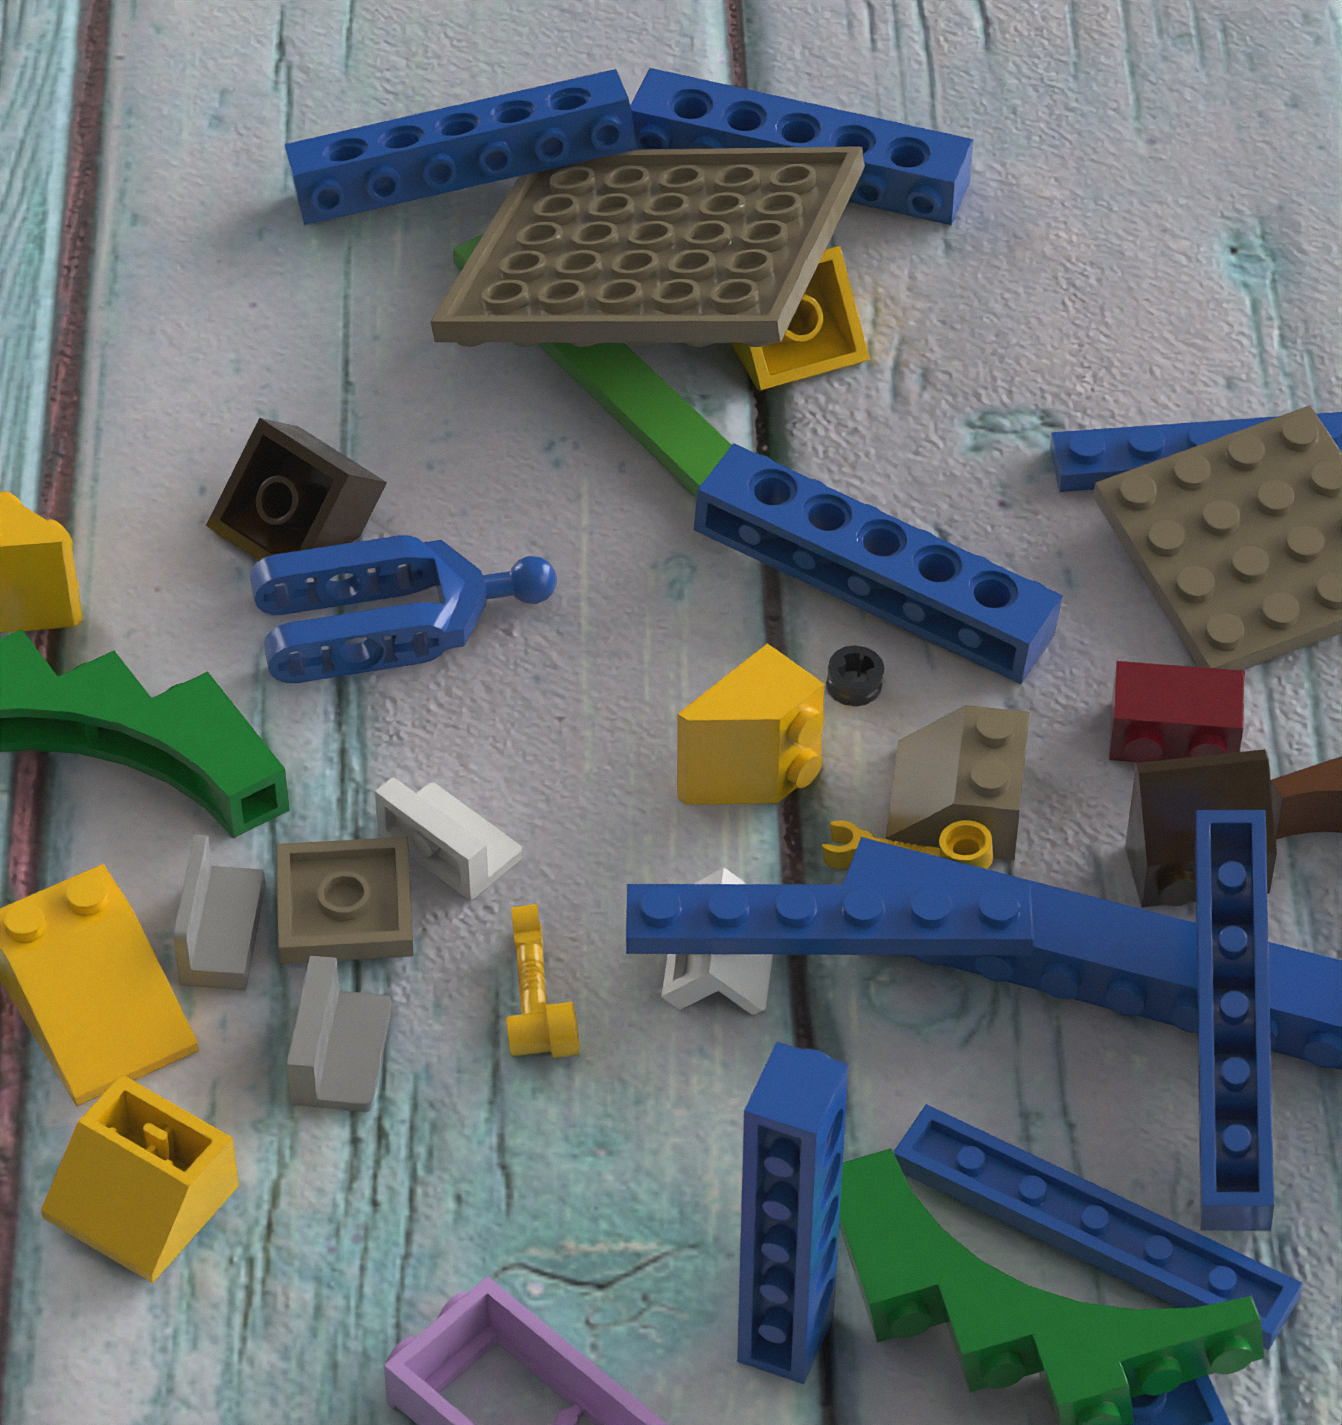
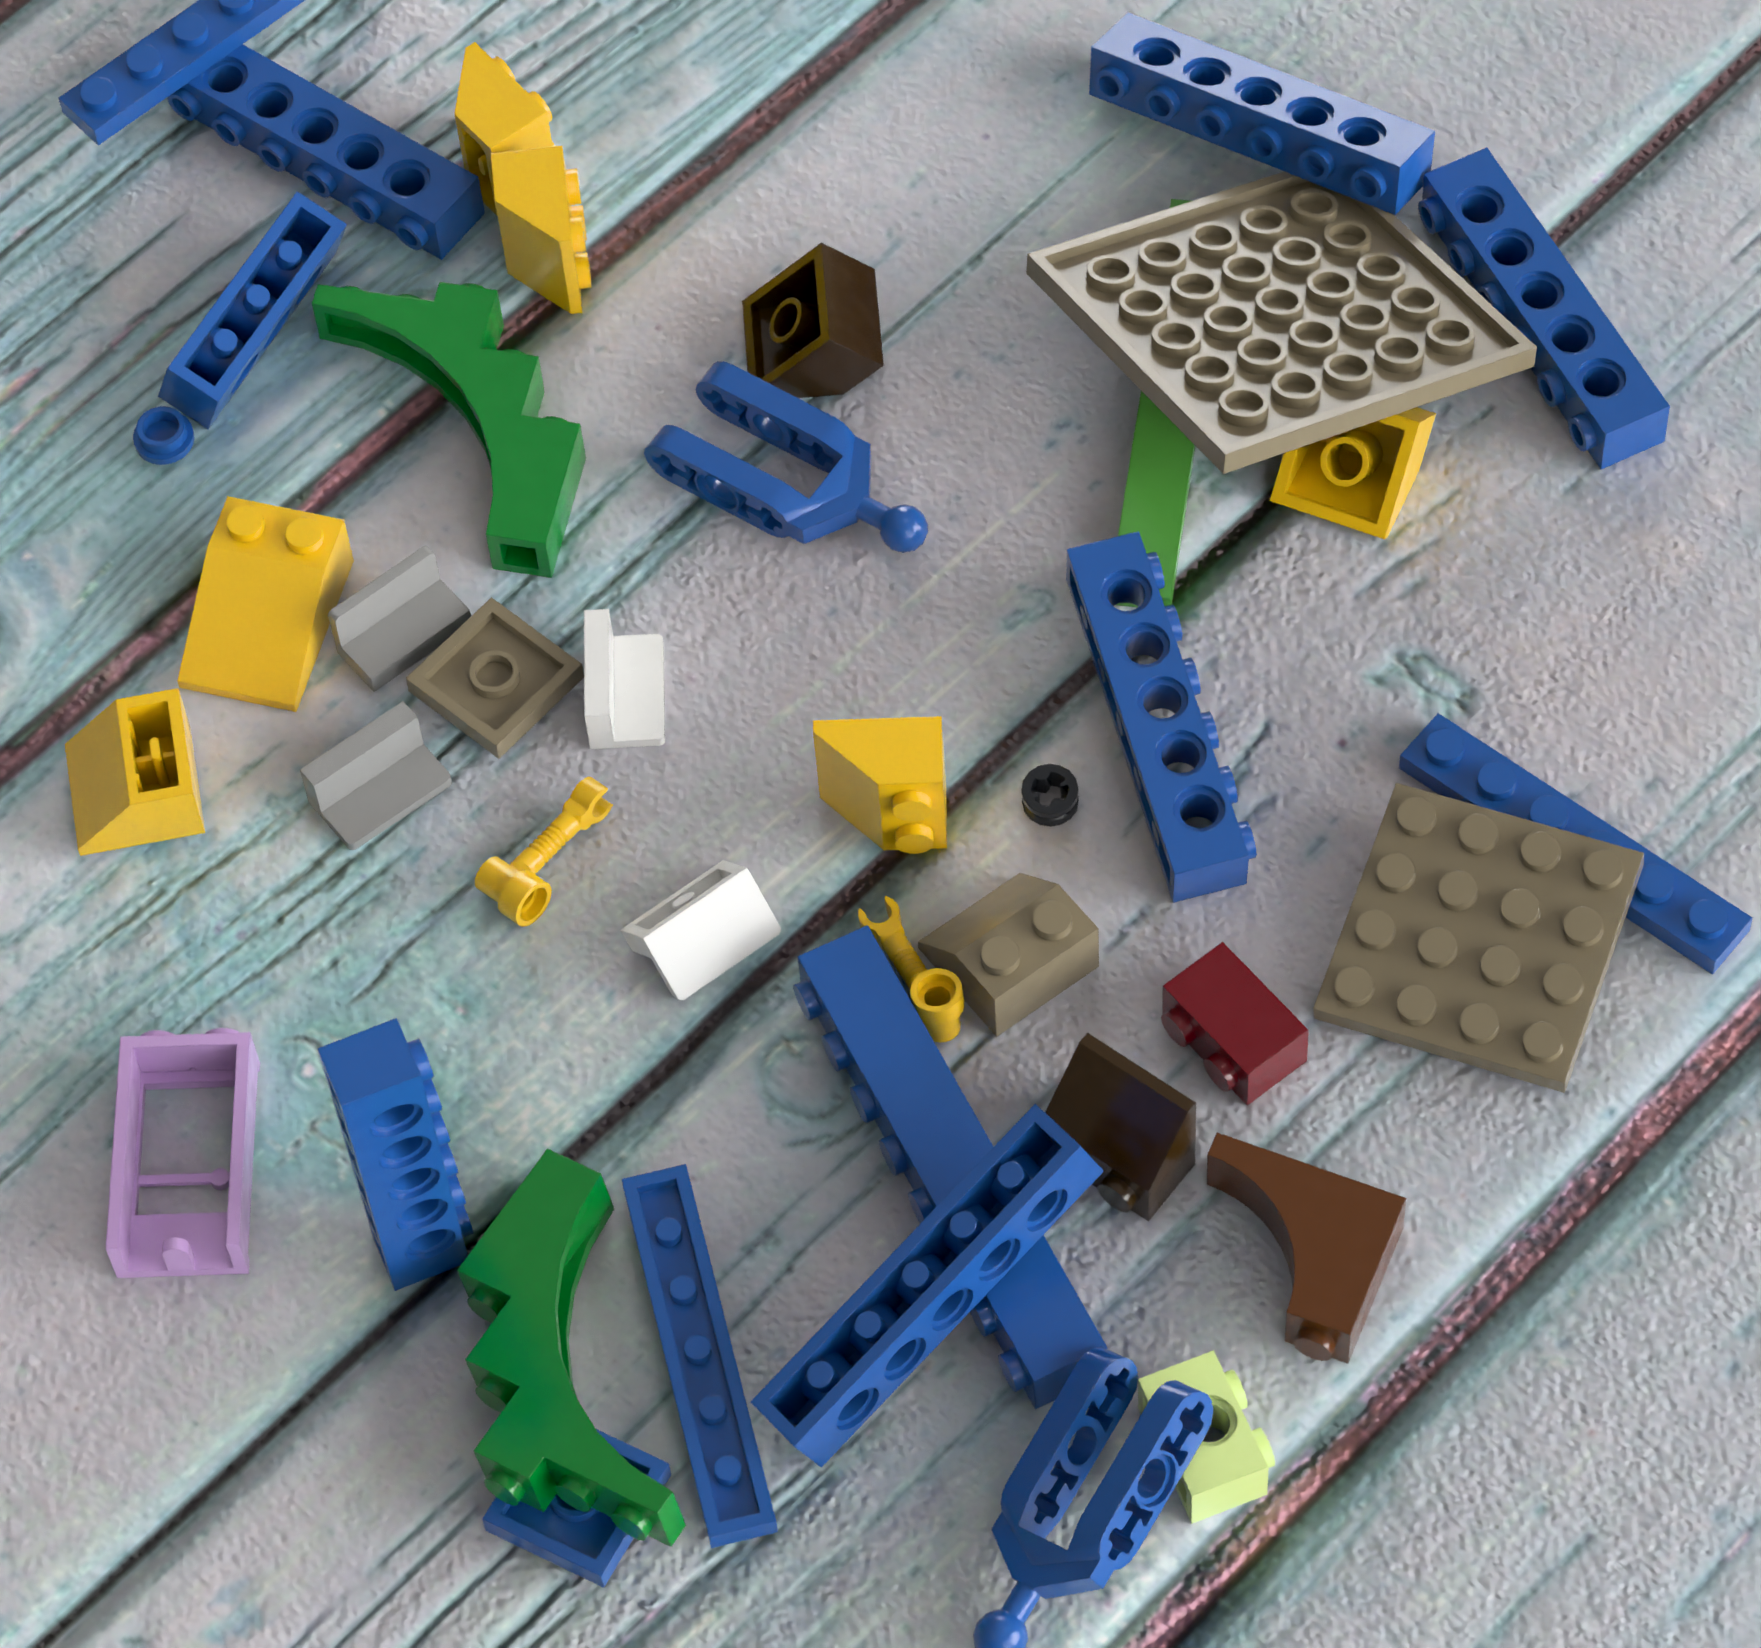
camera: 50 degrees right, 10 degrees up
(829, 919) = (763, 970): blue plate -> none

